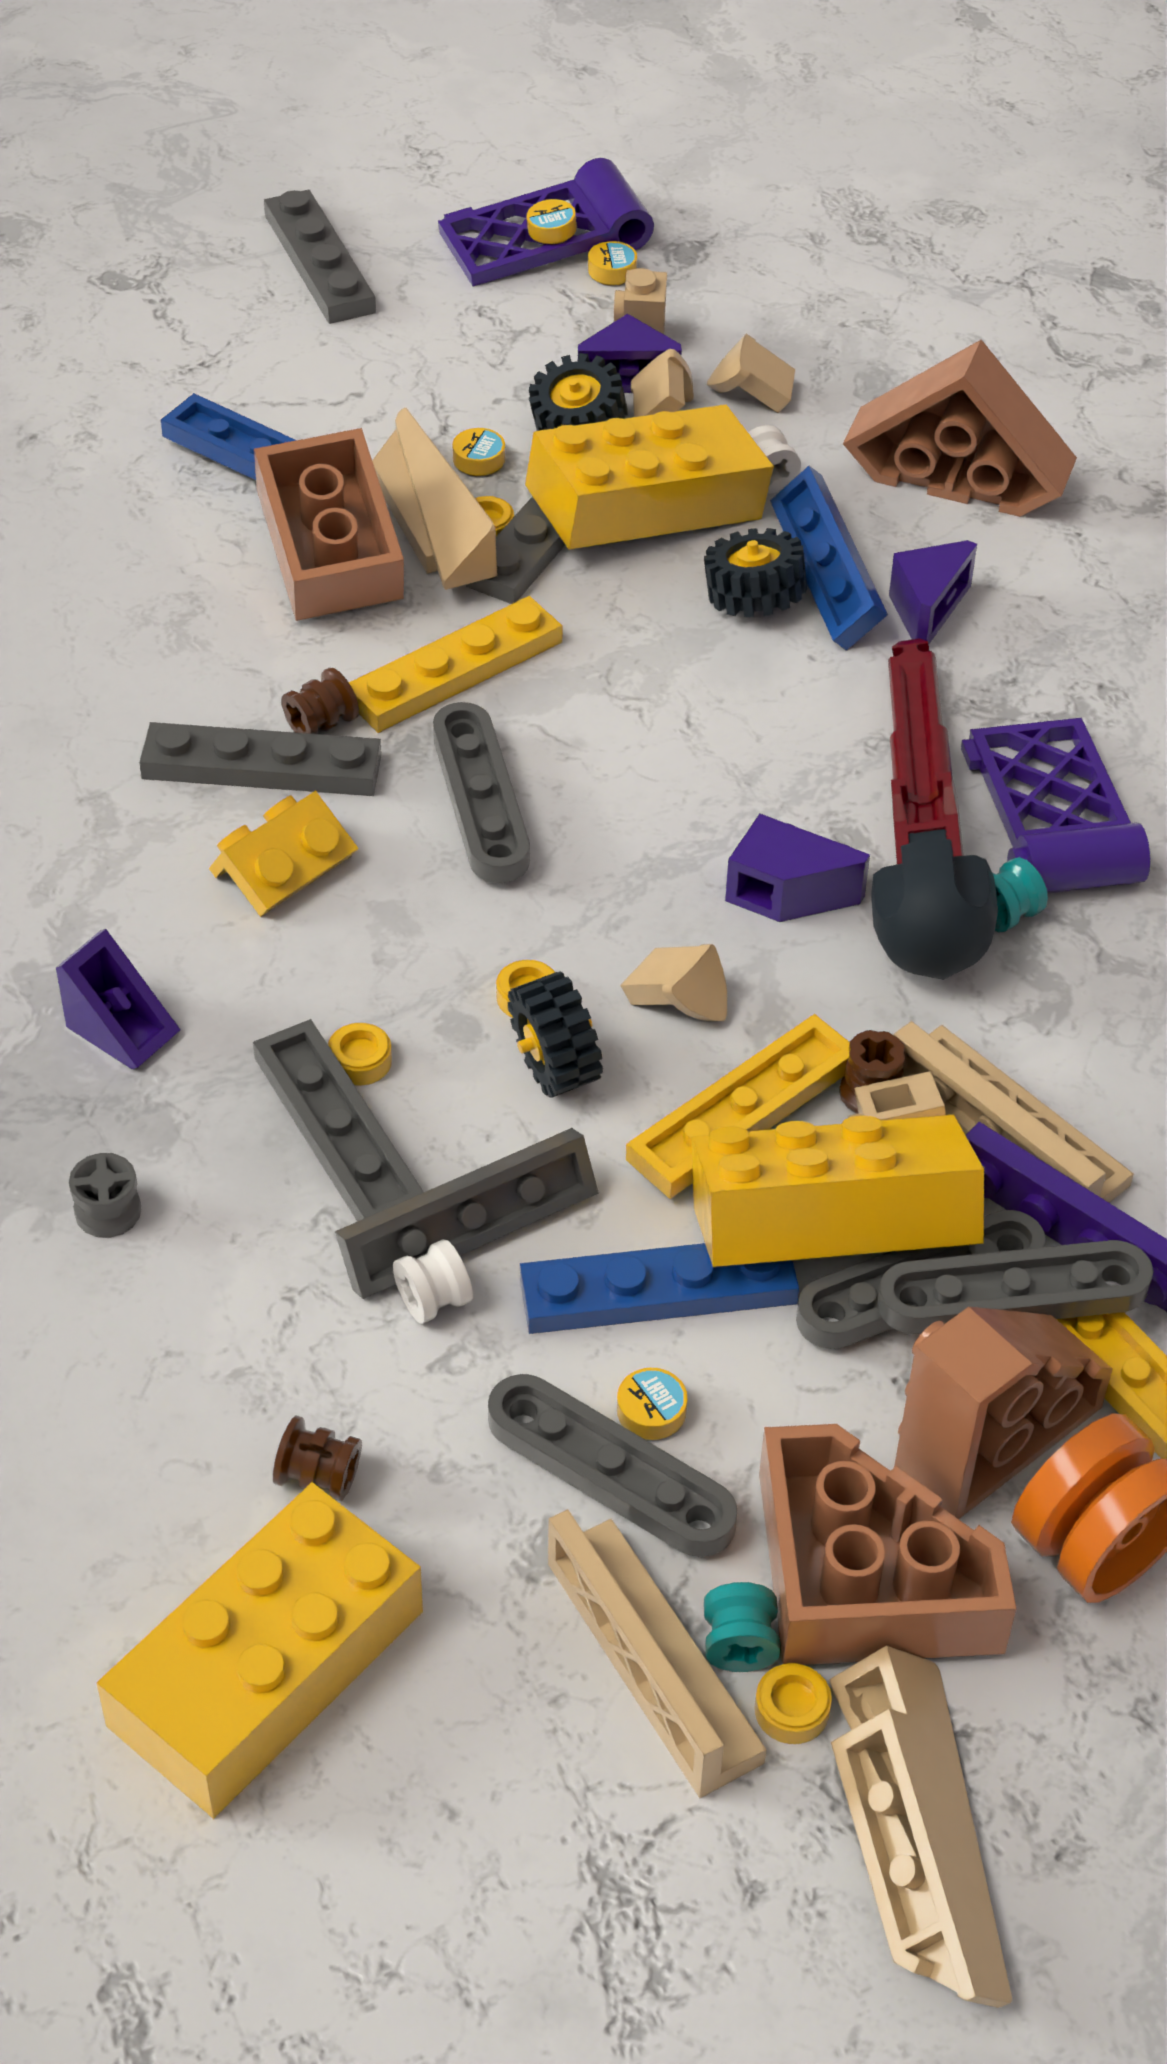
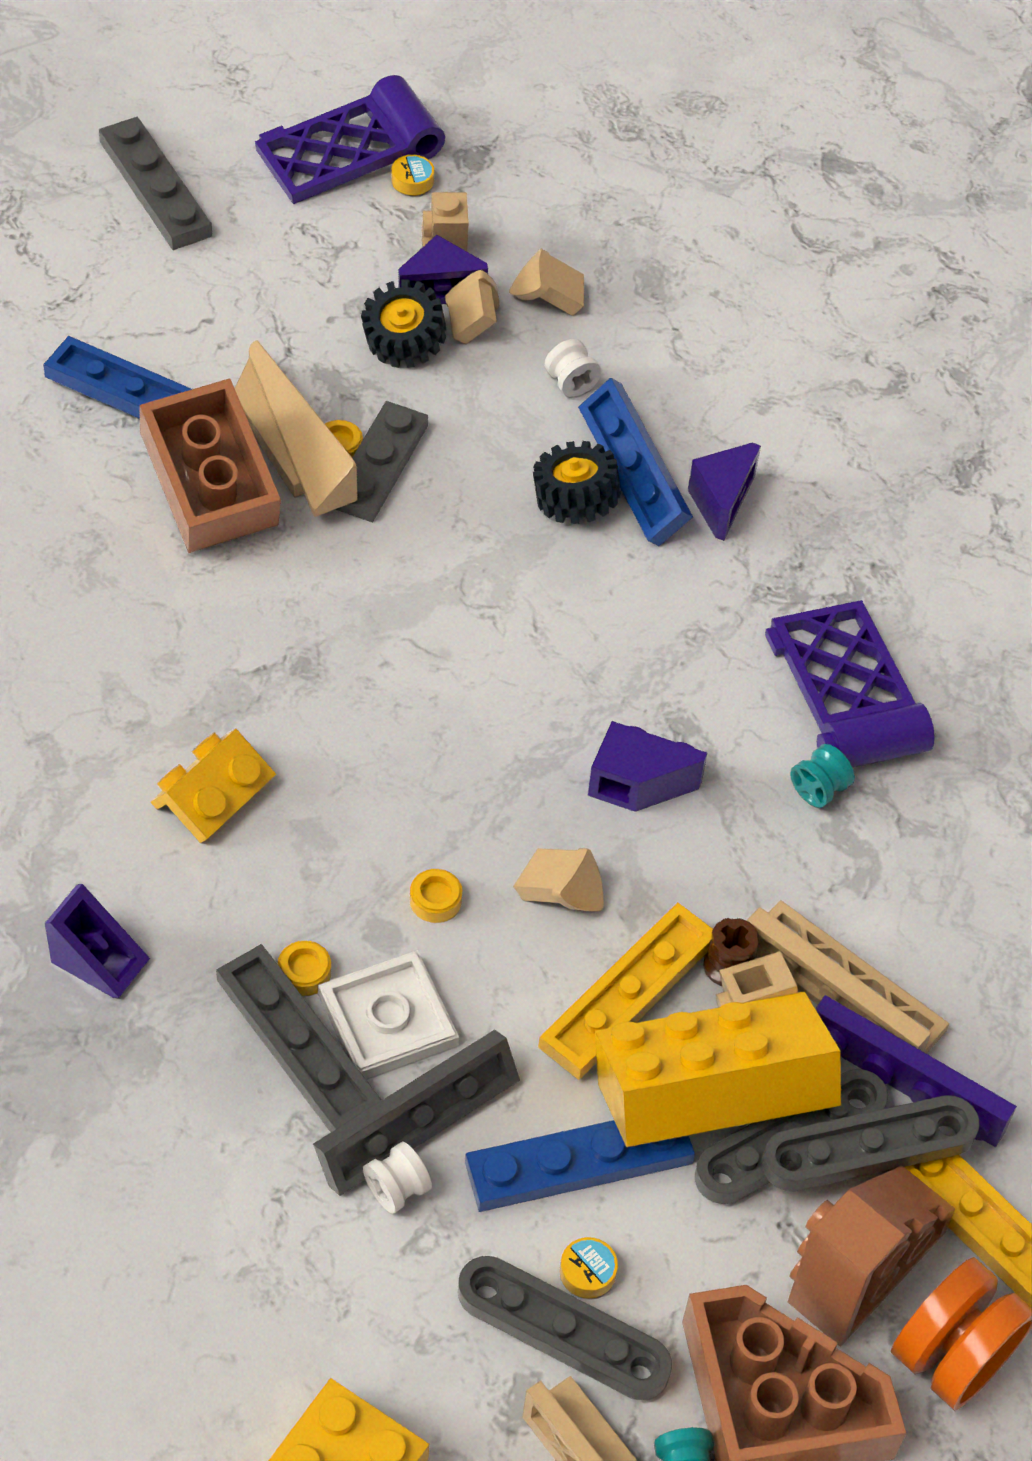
camera: 10 degrees left, 5 degrees up
(93, 1183) = (109, 1109): dark grey wheel -> none
(261, 759) = (179, 692): dark grey plate -> none
(317, 1459) = (325, 1348): reddish brown bush -> none
(320, 703) = (224, 638): reddish brown bush -> none
(451, 1111) = (388, 1015): none -> white tile
(455, 663) = (330, 586): yellow plate -> none
(478, 451) = (323, 374): yellow tile -> none
(481, 793) = (372, 712): dark grey plate -> none
(551, 221) = (357, 140): yellow tile -> none
(555, 1034) = (469, 943): black wheel -> none
(647, 475) = (474, 396): yellow brick -> none
(935, 904) = (764, 795): piece -> none
(963, 436) = (736, 339): nougat brick -> none

